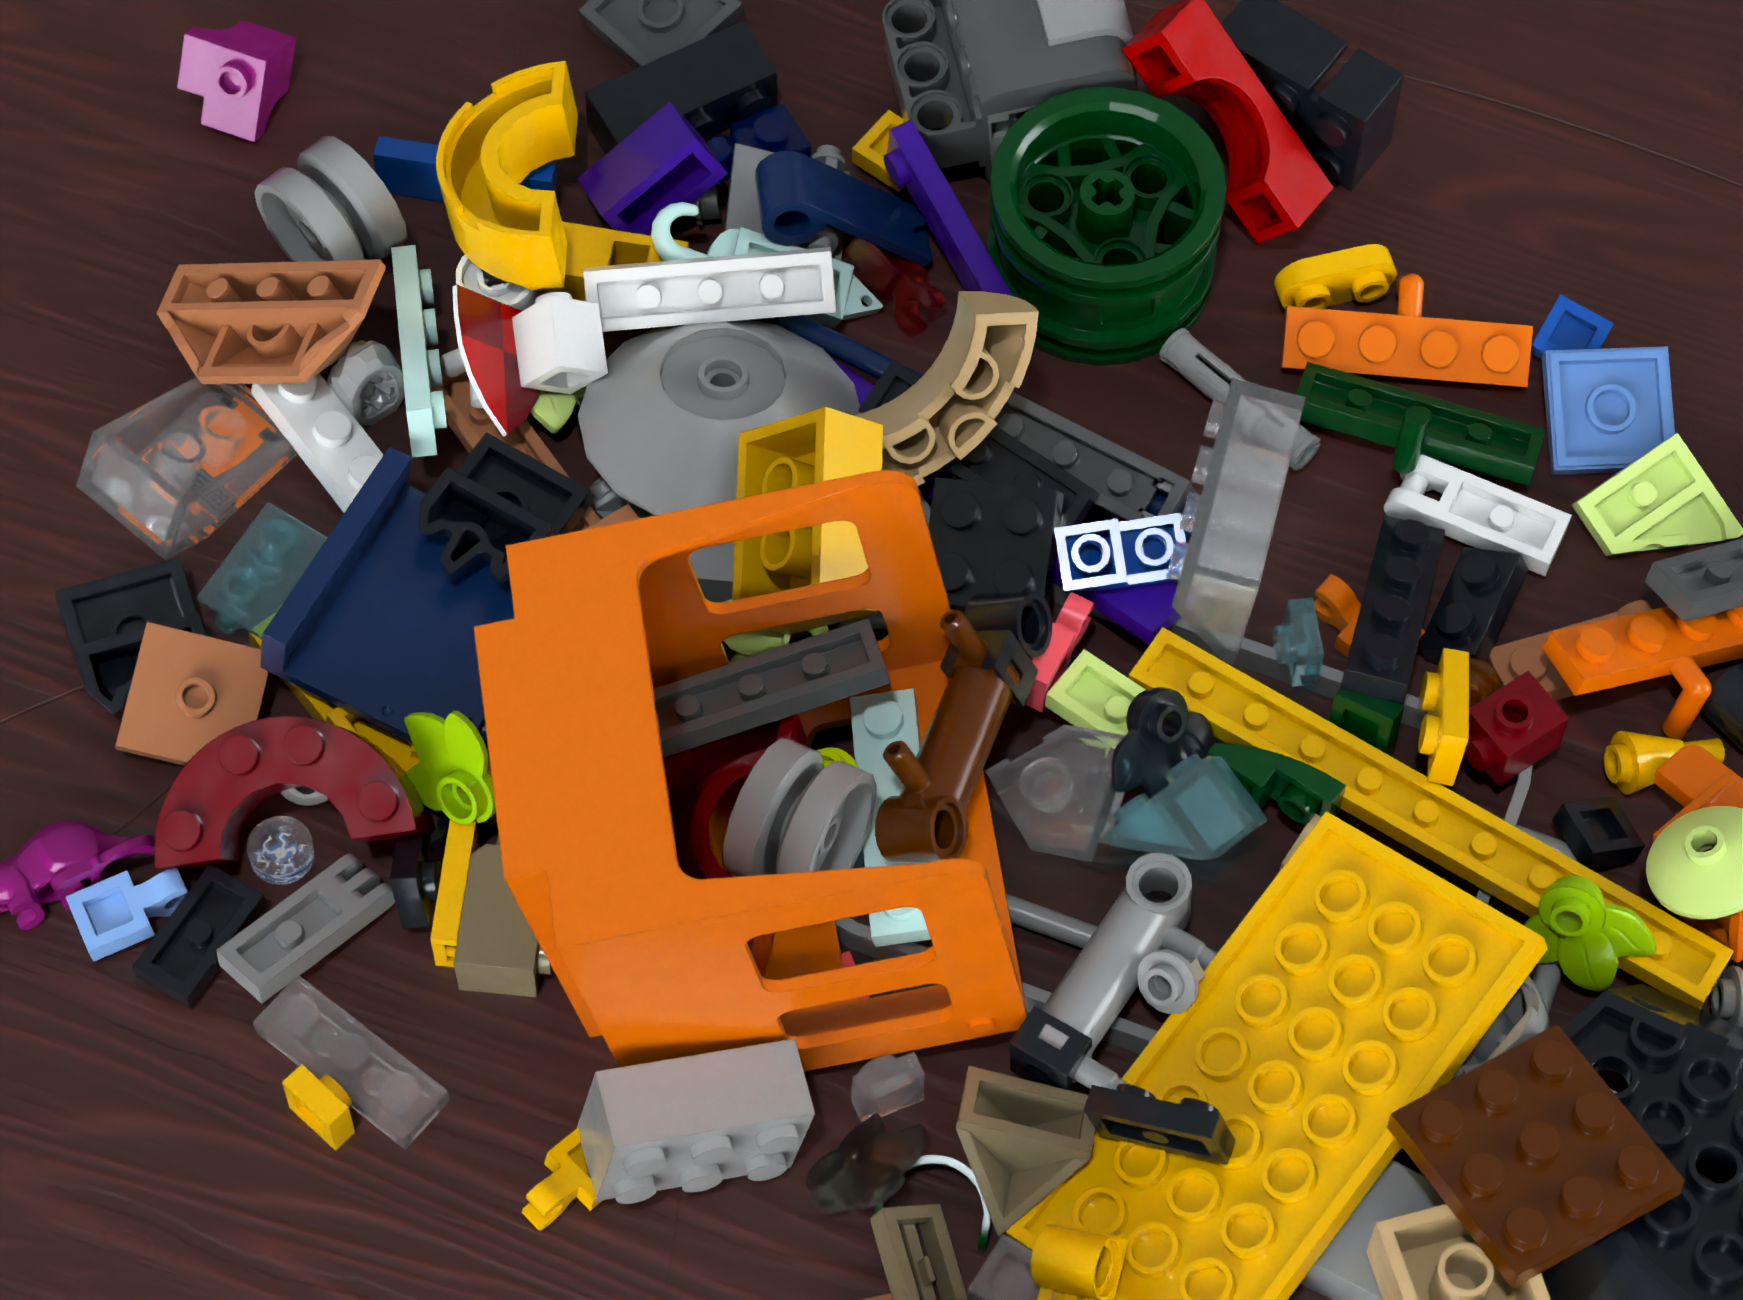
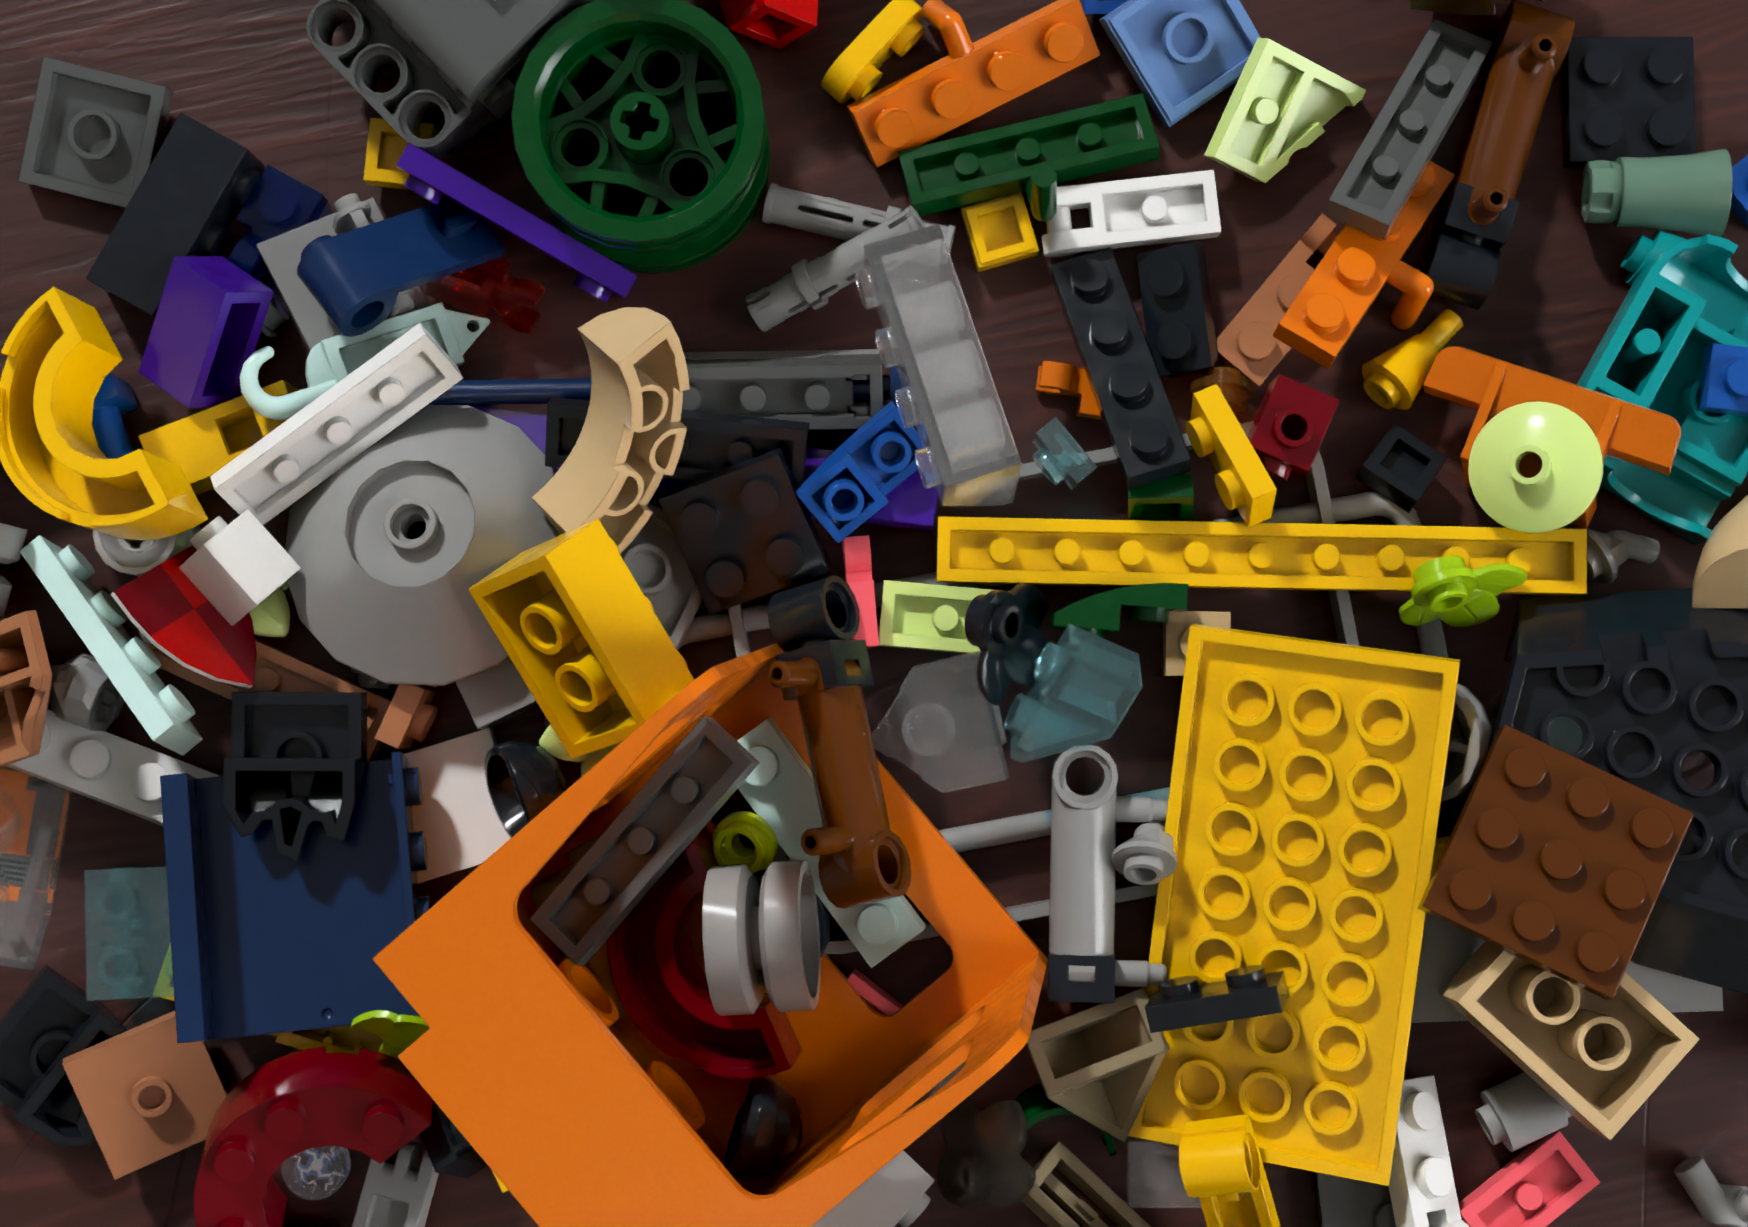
camera: 30 degrees left, 25 degrees up
(1159, 415) = (817, 280): none -> light grey pin
(1356, 472) = (999, 231): none -> yellow tile

